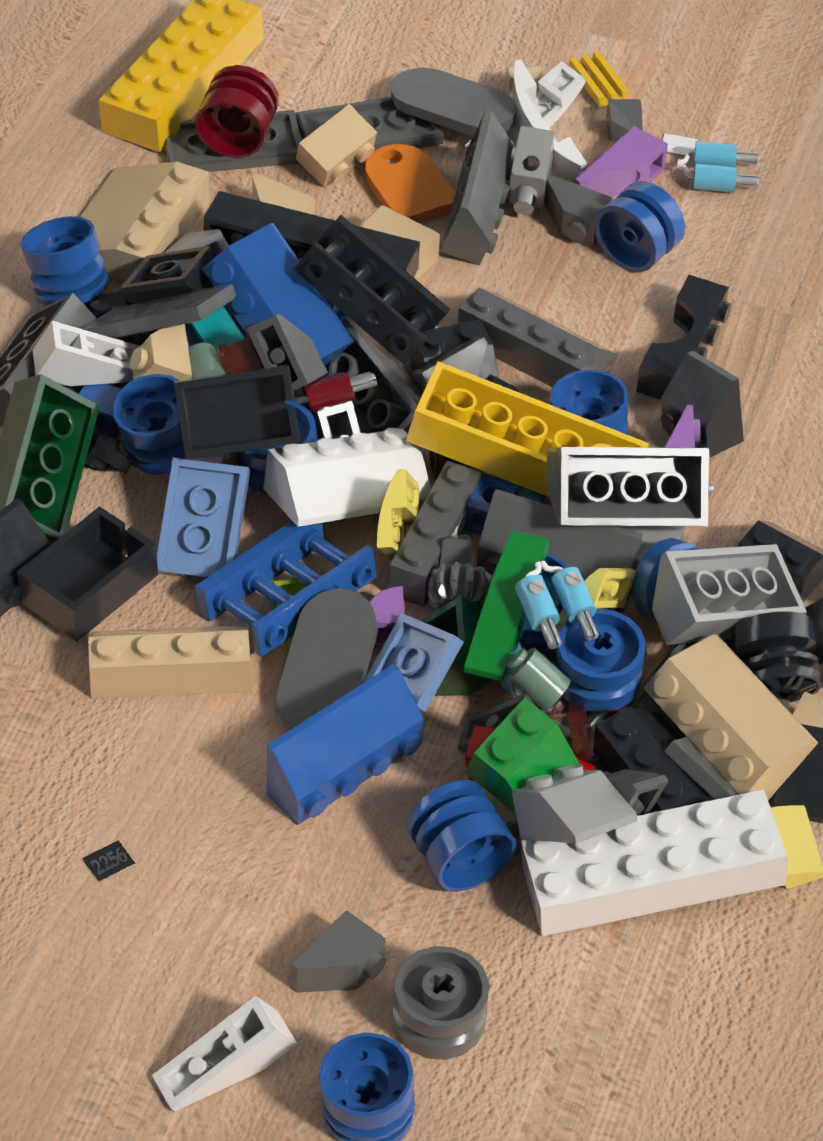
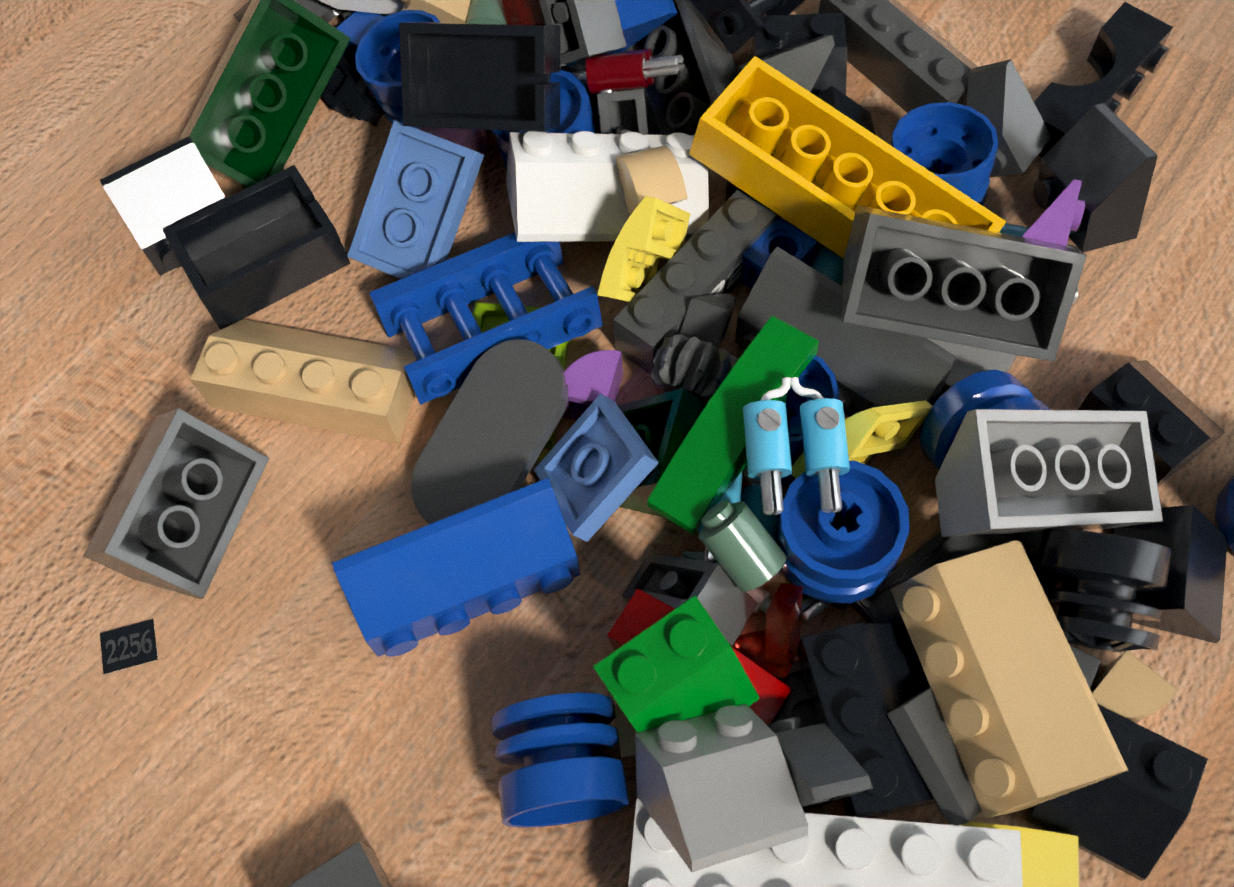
camera: 25 degrees right, 15 degrees up
(107, 758) = (177, 505): none -> dark grey slope
(382, 460) = (650, 174): none -> tan brick
(619, 358) = (1004, 99): none -> dark grey slope

